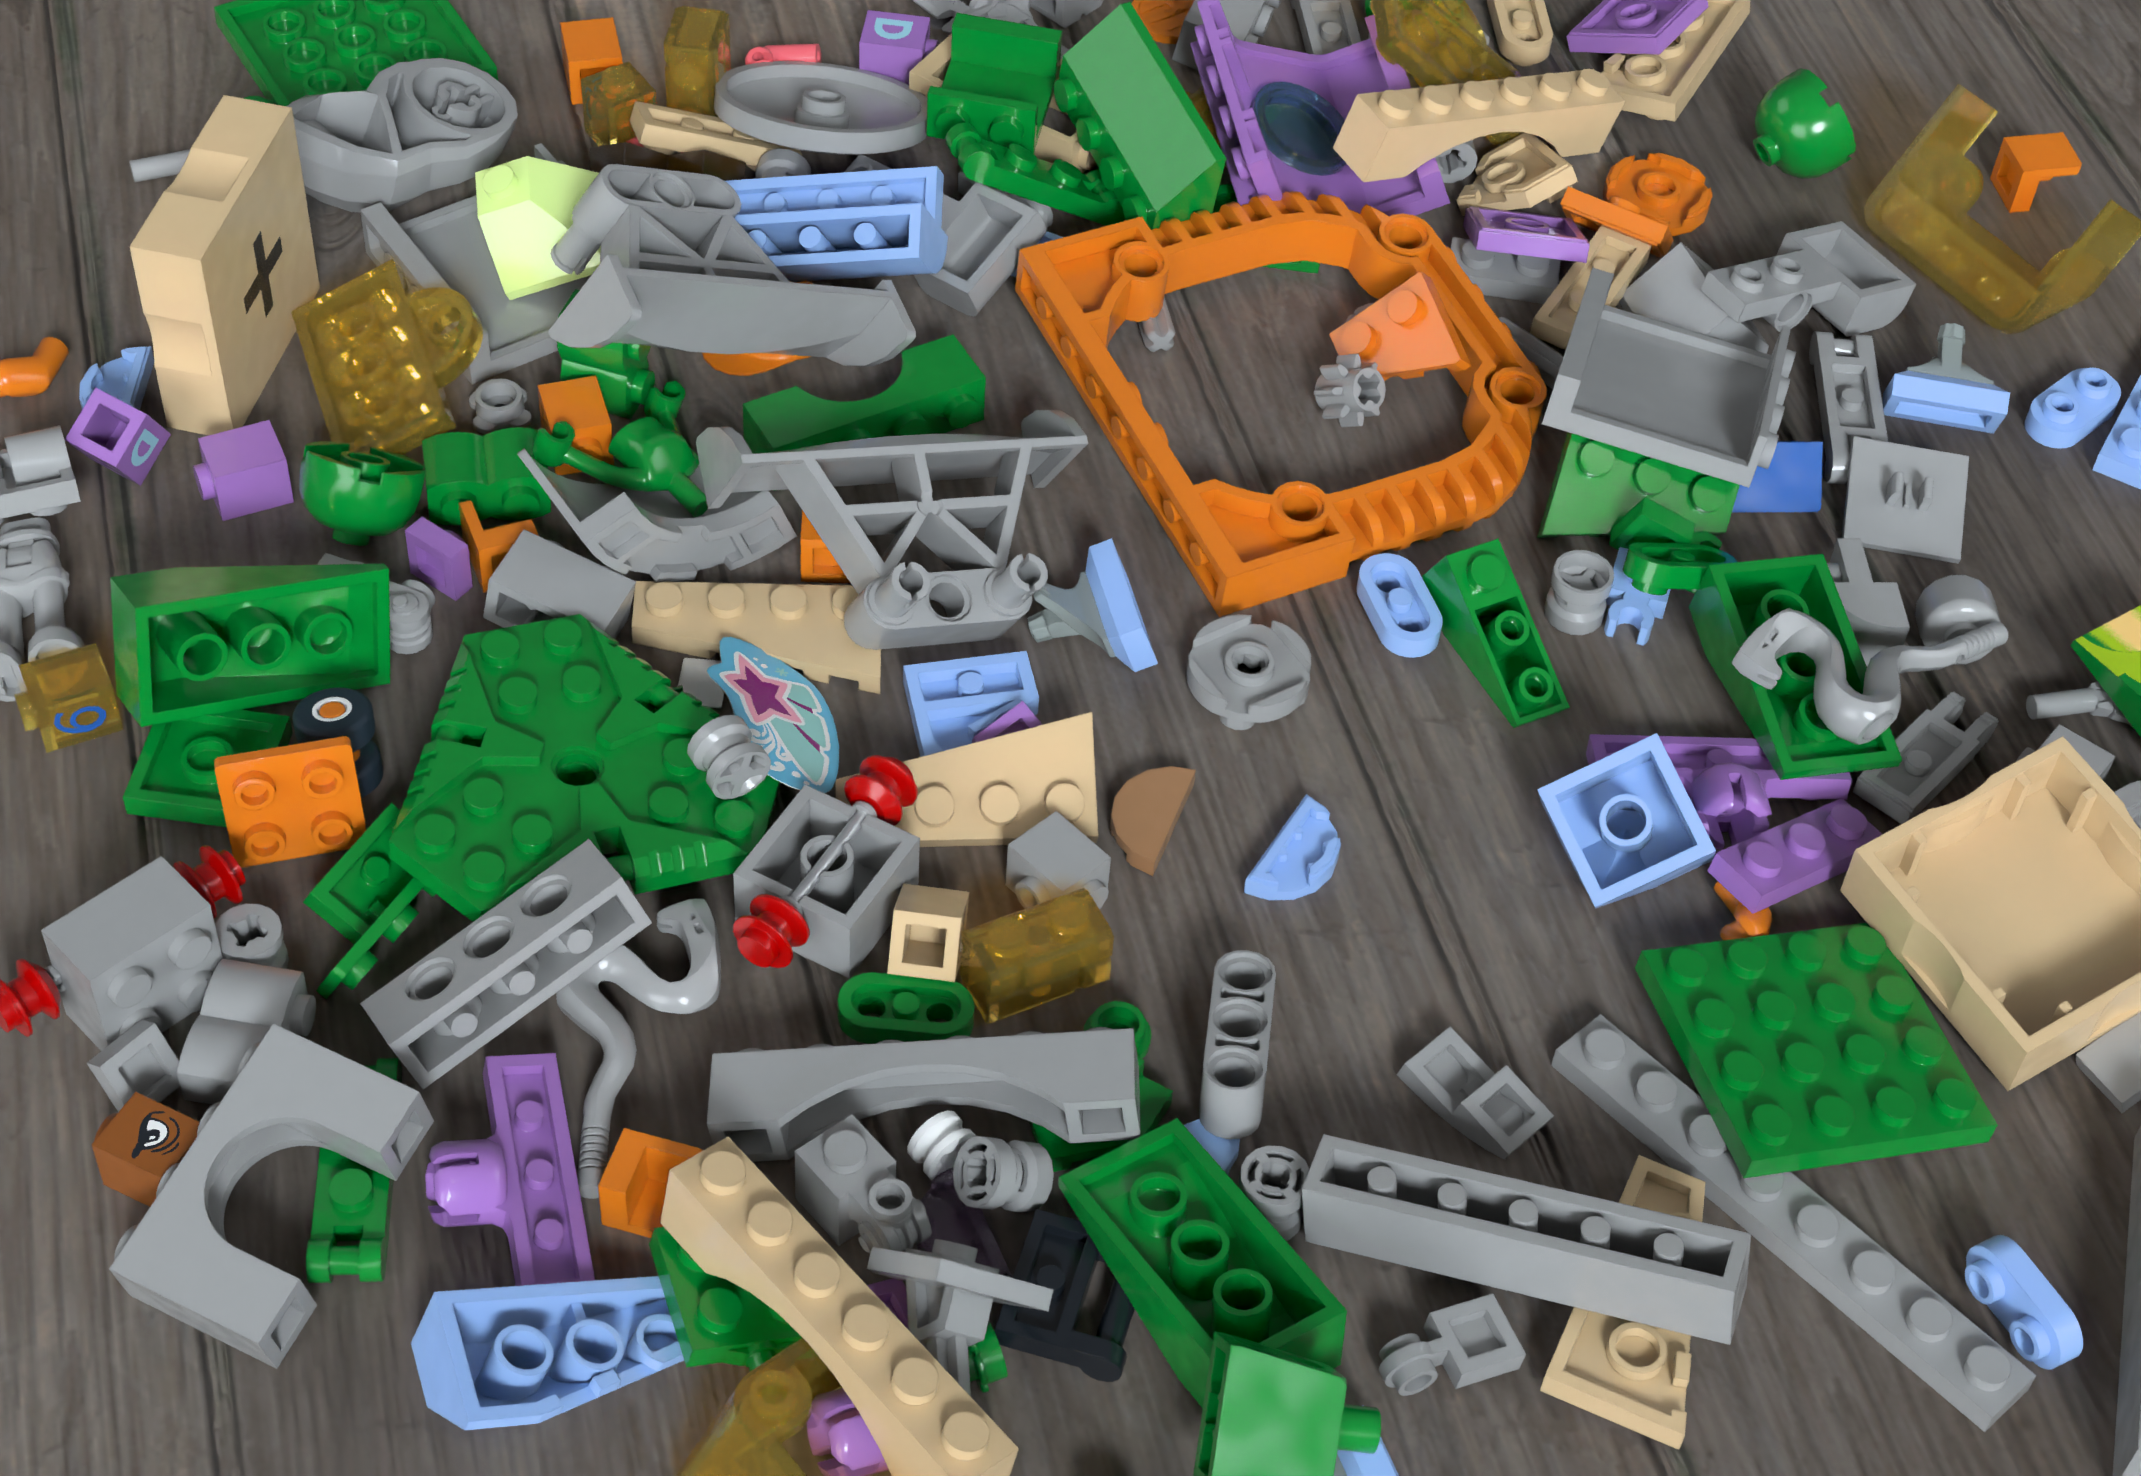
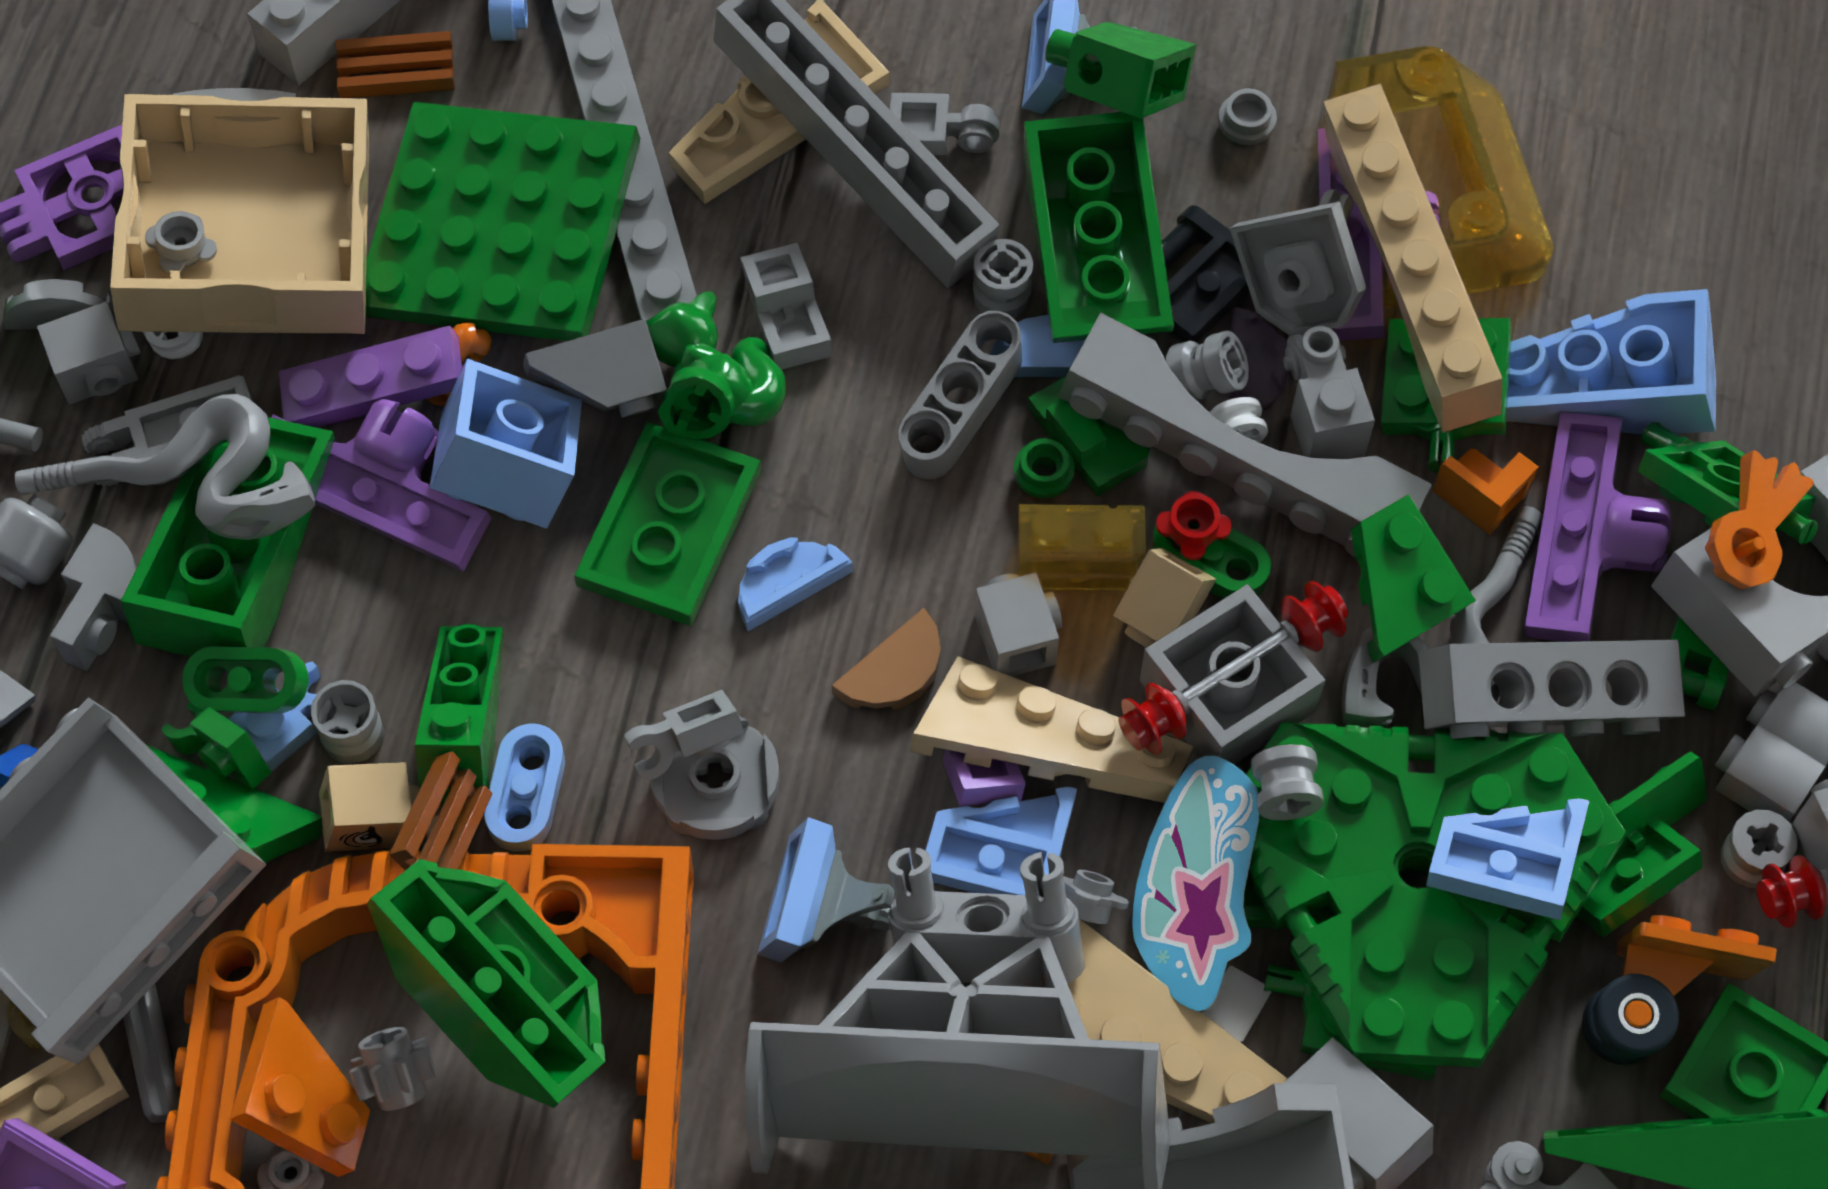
camera: 150 degrees left, 15 degrees up
(337, 1115) = (1745, 541): none -> orange piece
(376, 1240) = (1709, 478): none -> green plate
(492, 755) = (1510, 857): none -> light blue wing
(695, 1013) = (1404, 576): none -> green wing
(867, 671) = (1093, 896): none -> light grey plate
(934, 983) = (1197, 508): none -> red plate
(1283, 655) = (691, 728): none -> light grey plate
(1302, 396) = (492, 978): none -> green wedge
(1425, 508) = (456, 824): none -> dark orange tile
(1436, 847) = (668, 524): none -> green plate
(1479, 953) = (707, 385): none -> green animal
(1522, 524) = (364, 805): none -> tan brick
(1593, 919) = (603, 369): none -> light grey slope
(2071, 845) = (175, 229): none -> light grey plate
(2095, 1160) = (395, 56): none -> dark orange tile

